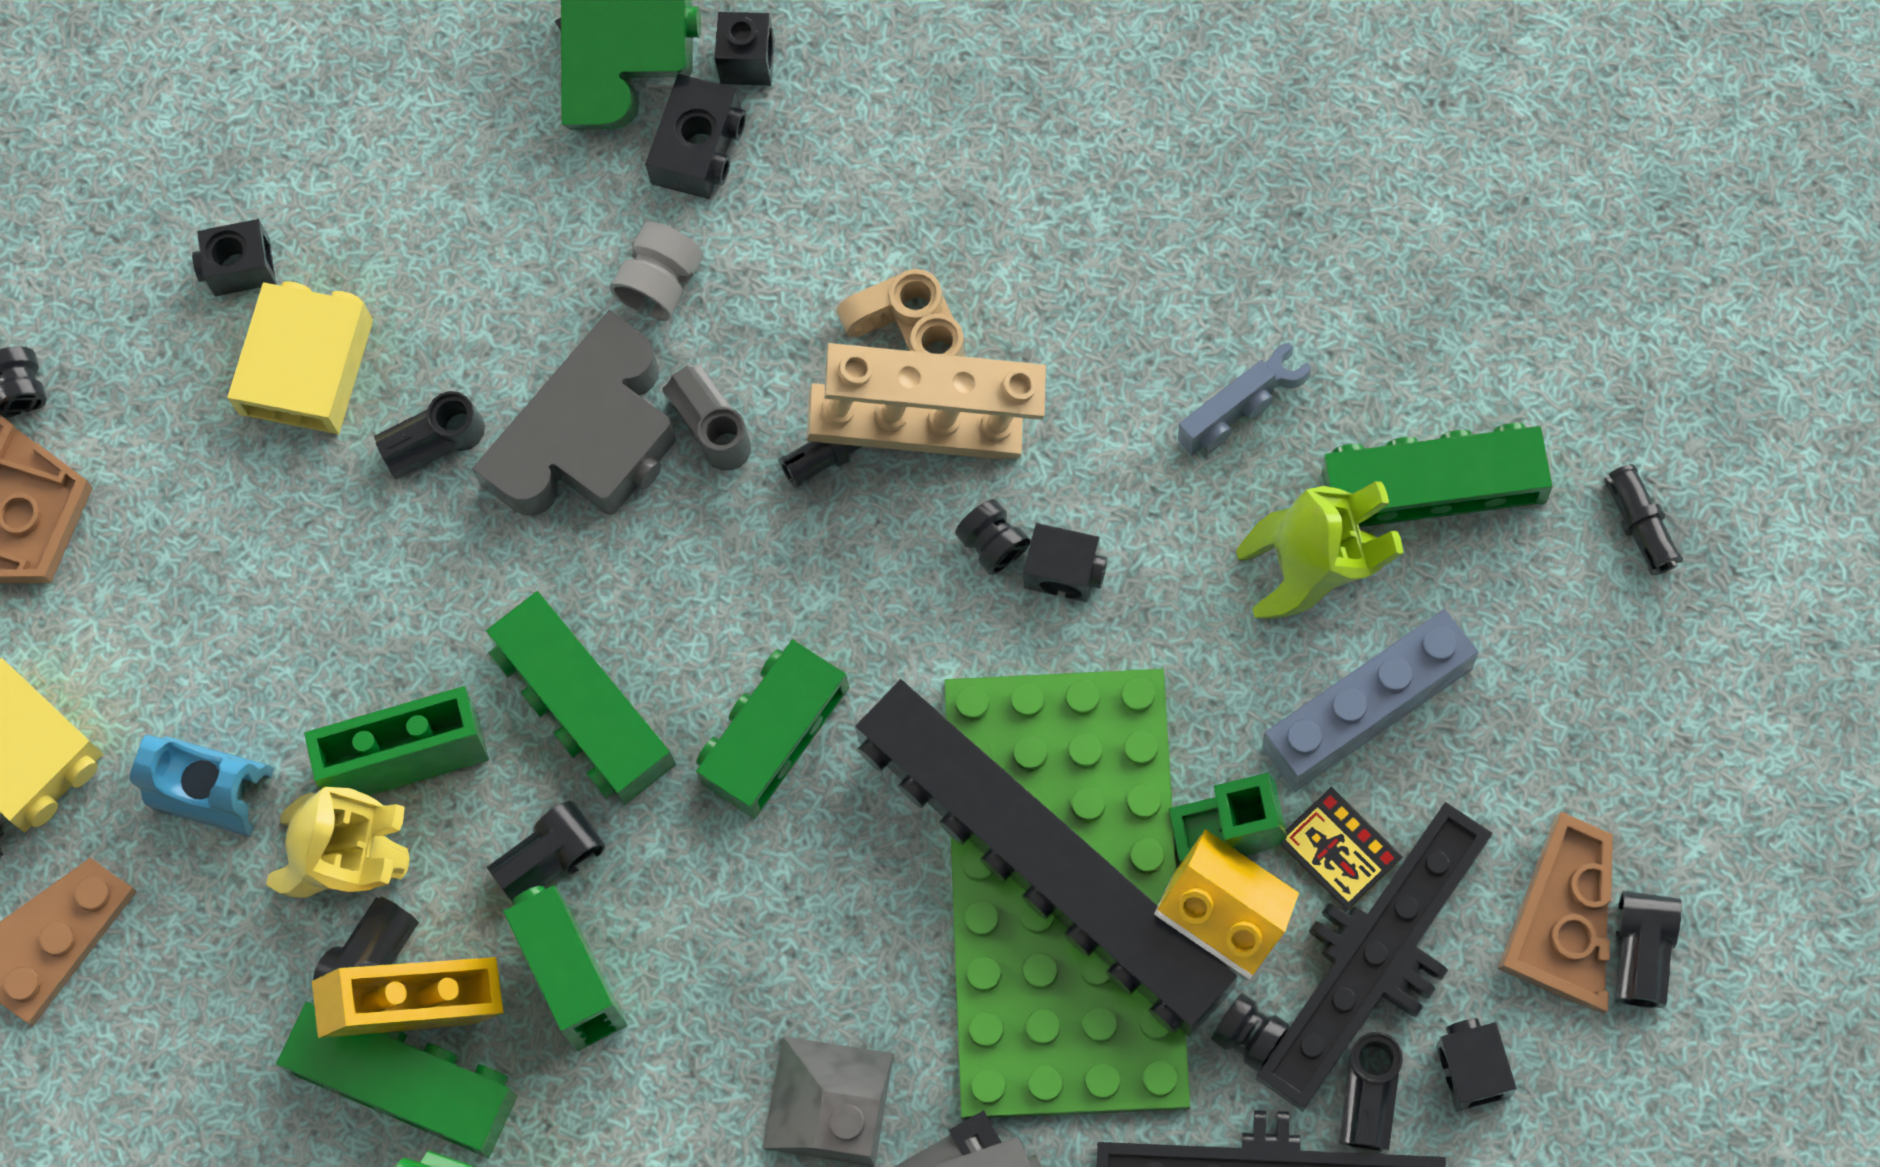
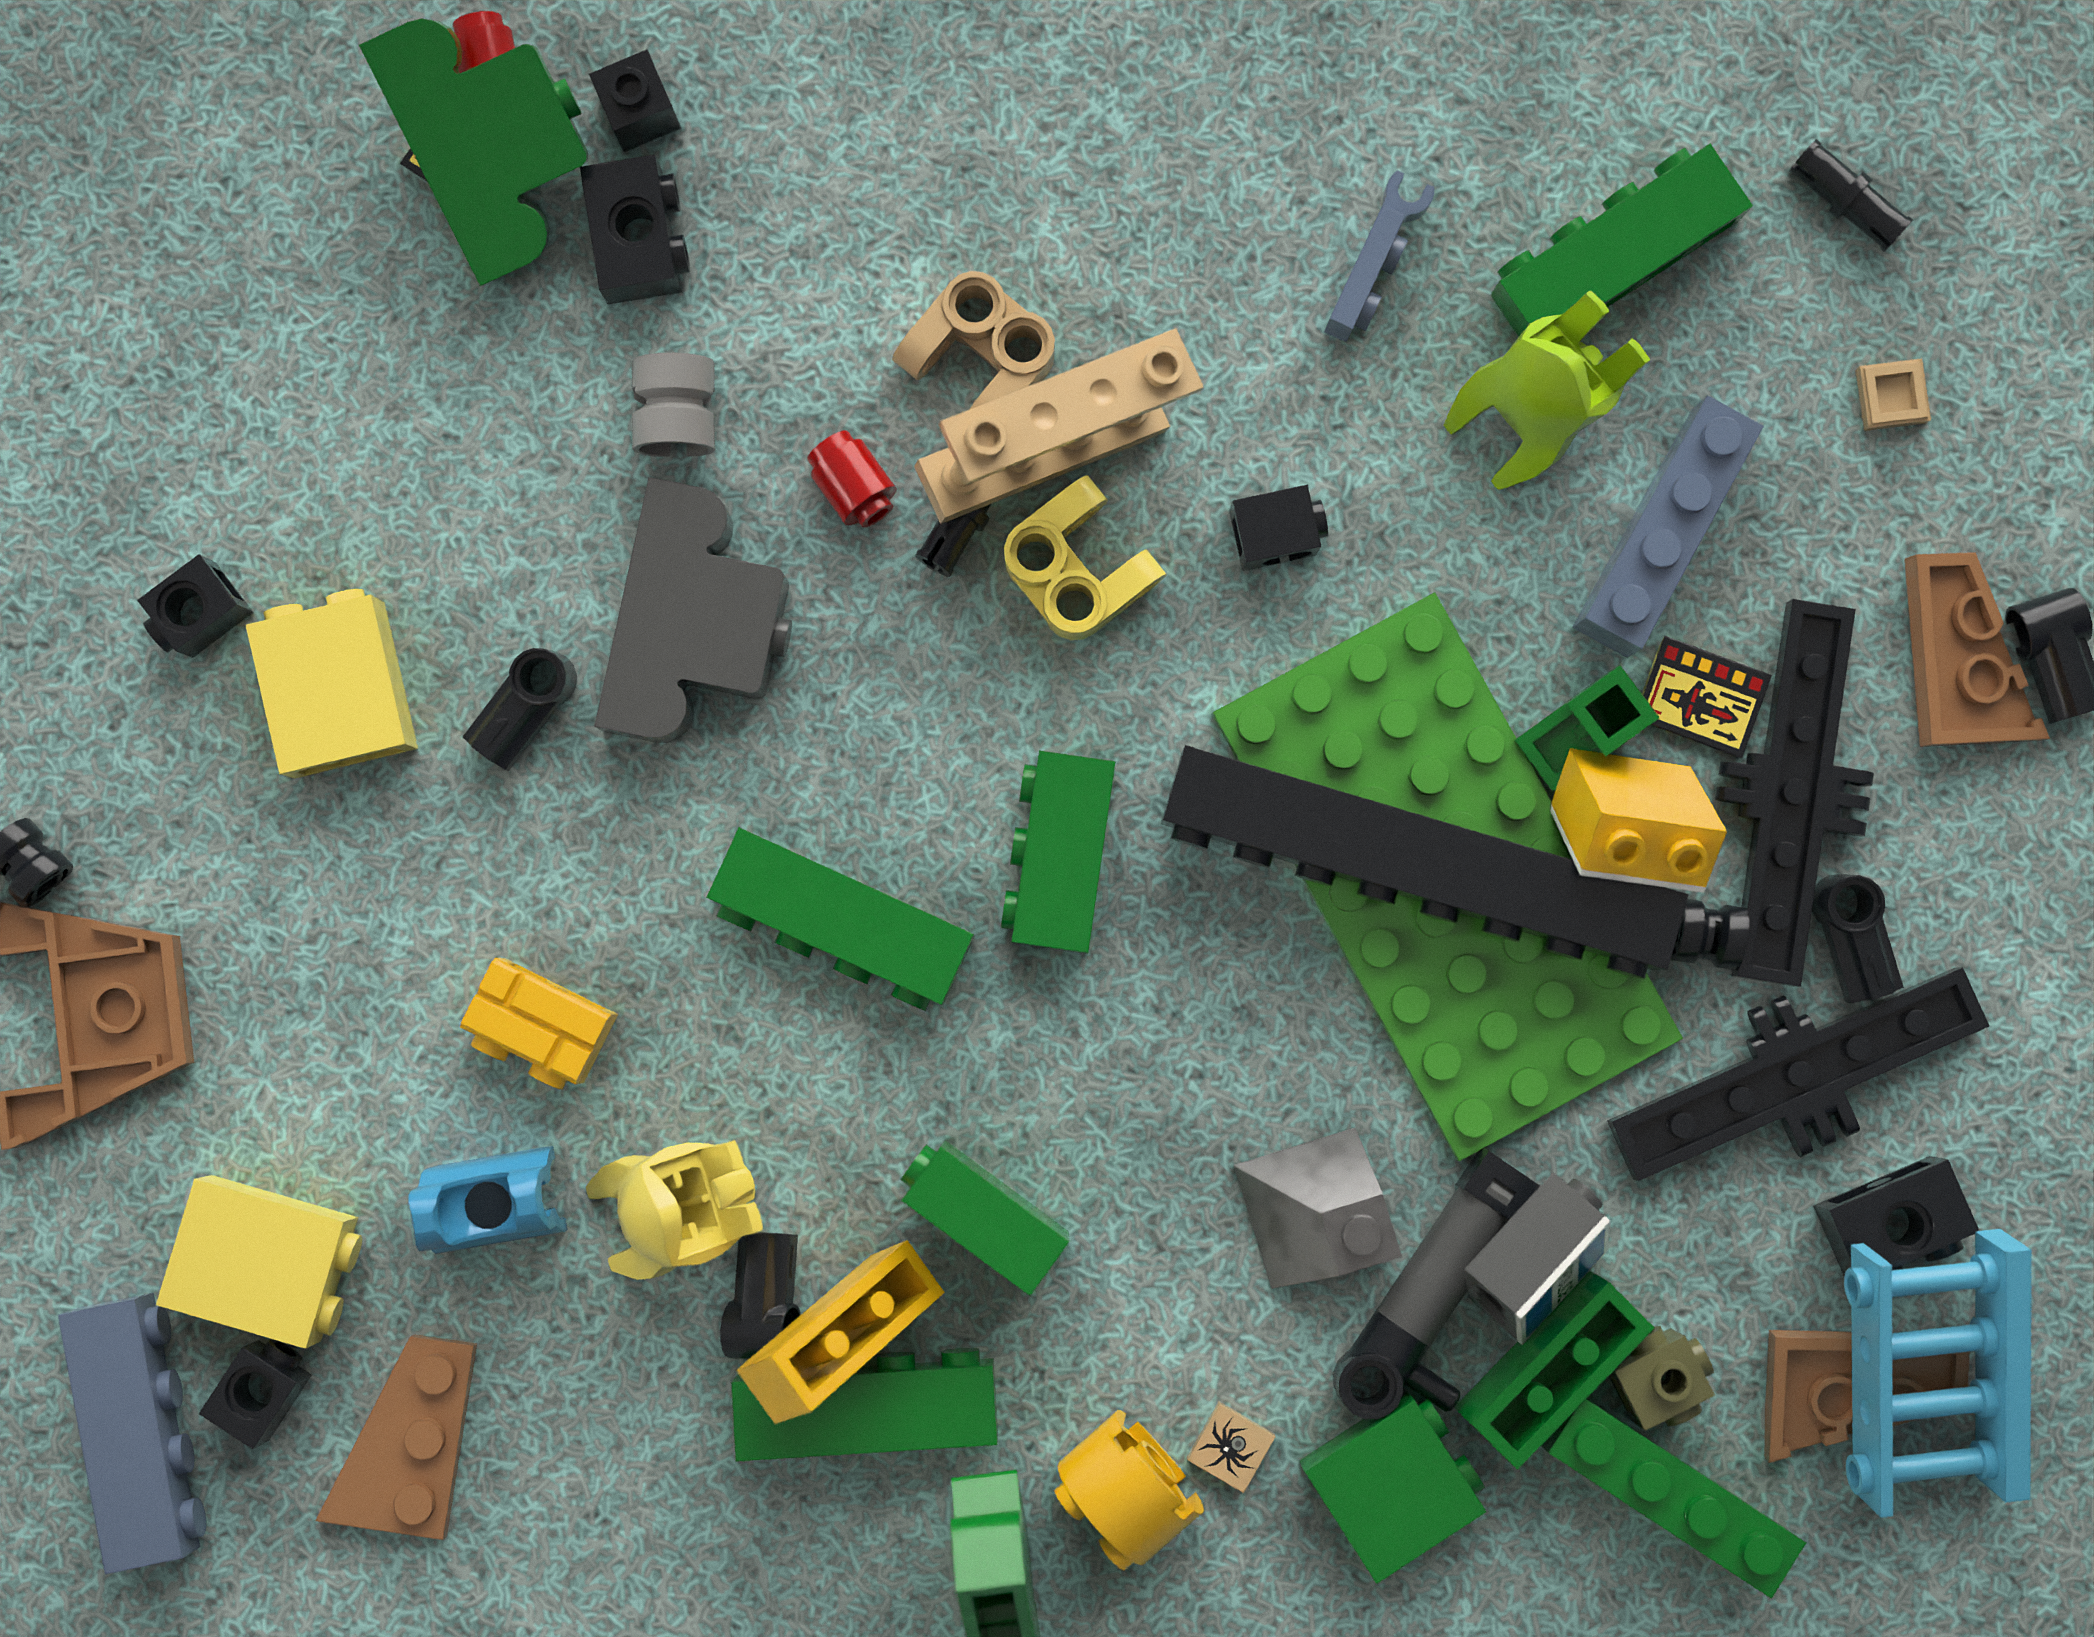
camera: 35 degrees left, 15 degrees up
(313, 667) = (537, 1022): none -> yellow brick
(398, 744) = (676, 1066): green brick -> none
(555, 848) = (898, 1088): black piece -> none
(708, 417) = (812, 541): dark grey piece -> none
(760, 384) = (851, 479): none -> red brick
(882, 524) = (1067, 573): none -> light yellow piece
(992, 536) = (1187, 533): black wheel -> none
(1476, 1064) = (1948, 858): black brick -> none
(1607, 687) = (1893, 394): none -> tan tile

